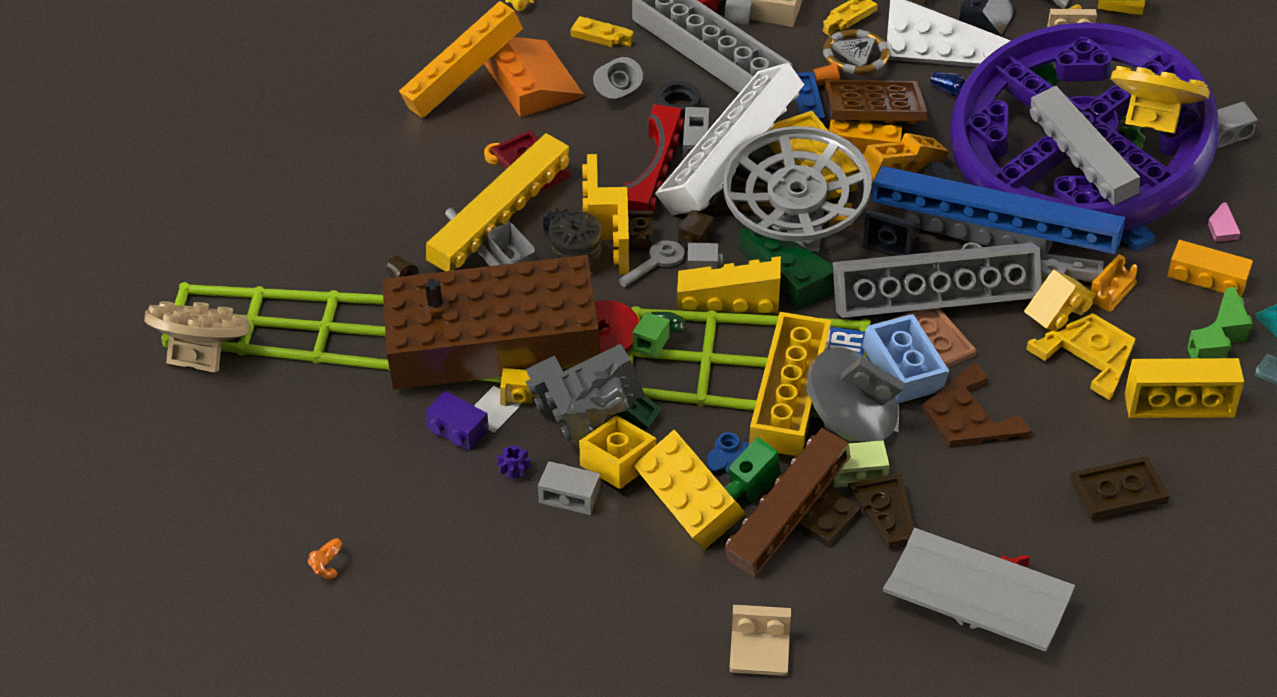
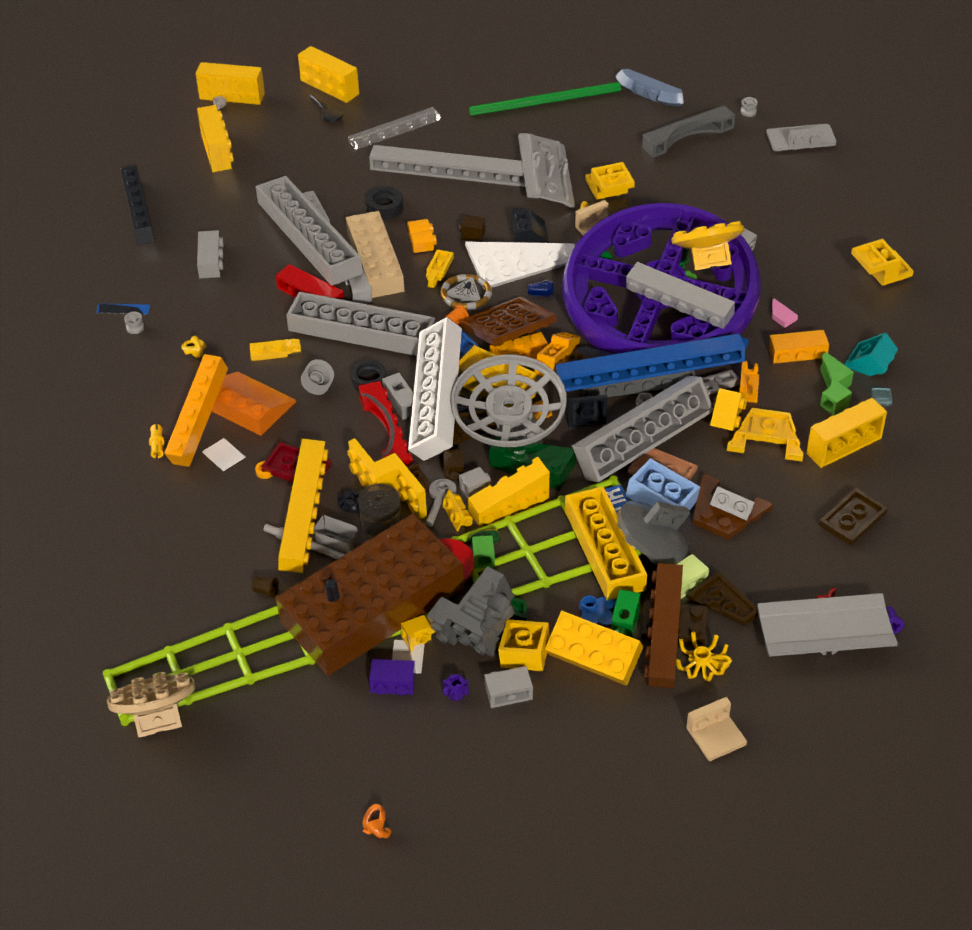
camera: 30 degrees left, 0 degrees up
(406, 75) = (156, 441): none -> yellow pin
(467, 120) = (223, 454): none -> white sticker
(663, 282) = (456, 510): none -> yellow hinge
(808, 559) = (703, 657): none -> yellow animal
(976, 406) = (732, 503): none -> light grey hinge
(1069, 625) = (896, 622): none -> dark purple bush

